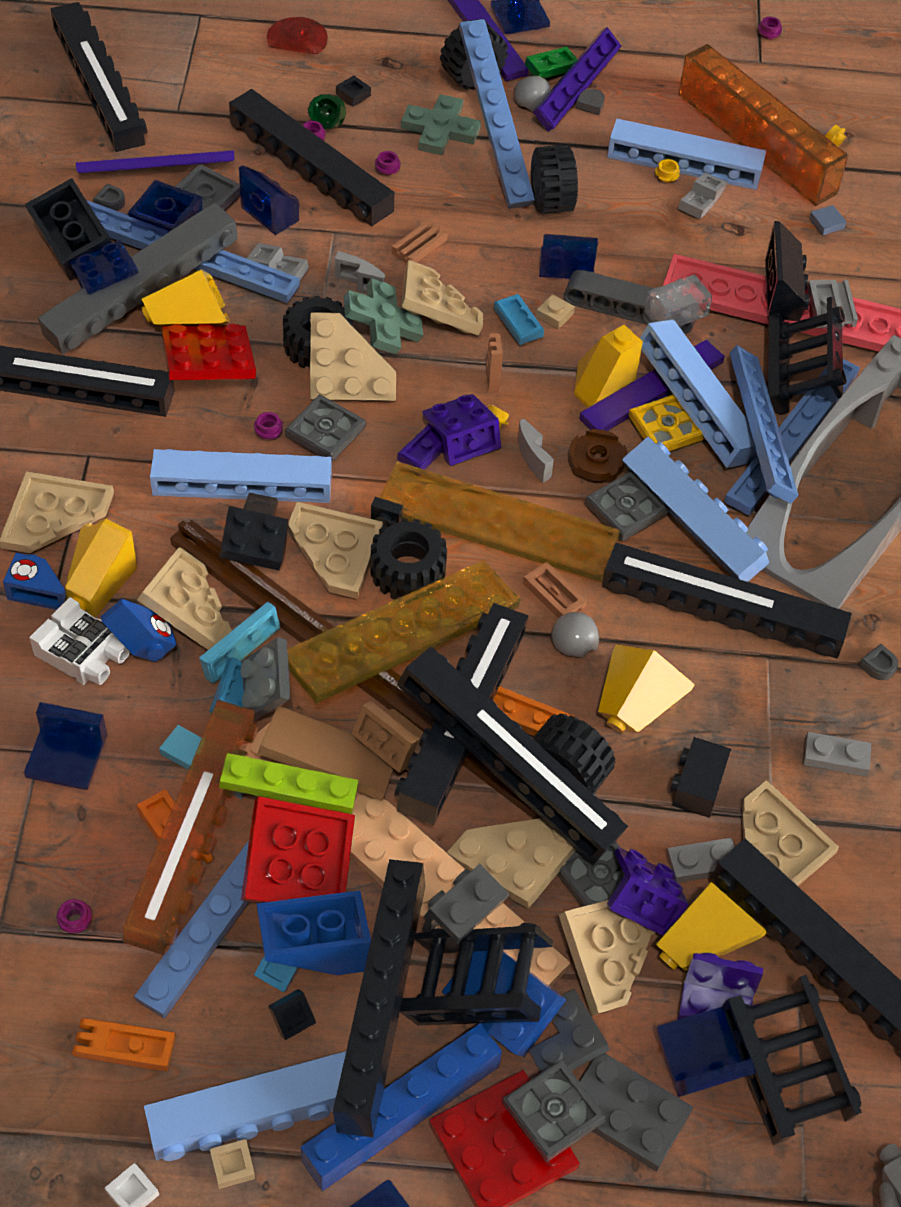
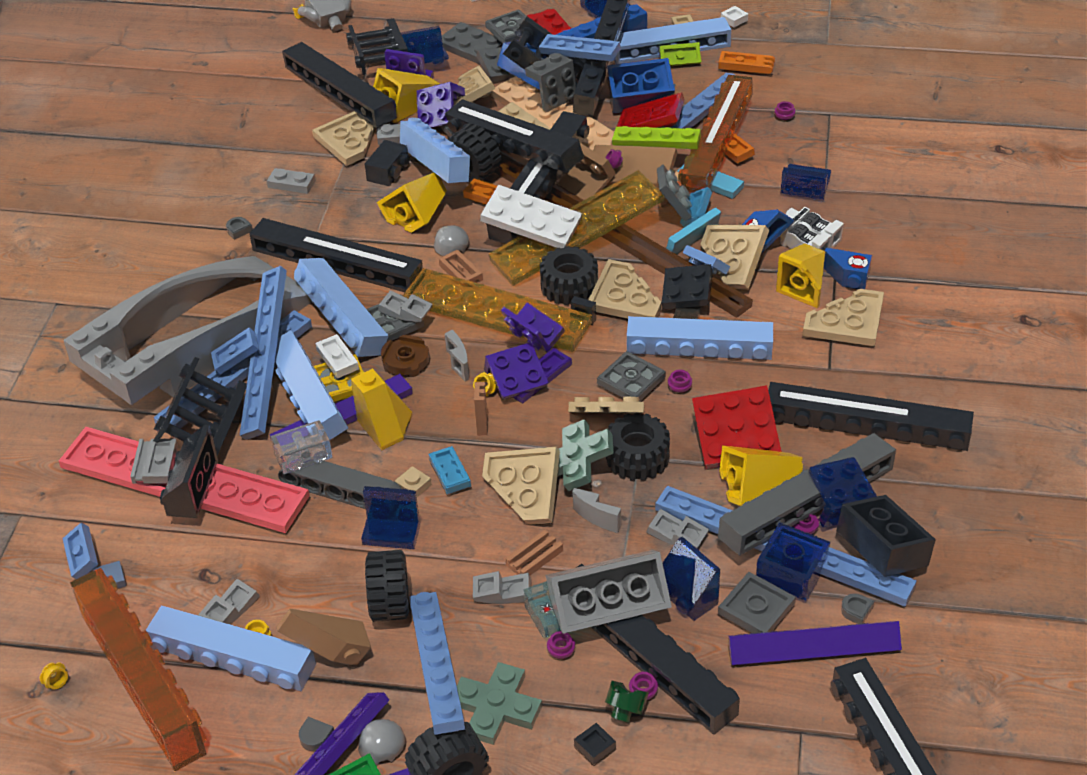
camera: 170 degrees left, 10 degrees down
(226, 585) = (698, 258): none -> medium blue plate
(234, 1061) = (681, 54): none -> lime plate
(346, 168) = (608, 591): none -> light grey slope
(355, 743) = (614, 158): none -> magenta plate
(403, 183) = (540, 609): none -> clear light blue leg
(419, 939) = (580, 47): none -> medium blue plate
(451, 454) = (534, 326): none -> dark purple bracket
(452, 212) = (499, 590): none -> light grey slope
(466, 614) = (531, 217): none -> white plate
(599, 140) = (330, 636): none -> medium nougat slope
(604, 500) = (406, 309): none -> light grey slope
(630, 749) = (435, 151): none -> light blue brick
(675, 428) = (337, 356): none -> white plate
(793, 418) = (234, 350): none -> medium blue plate
(862, 229) = (80, 551): none -> medium blue plate

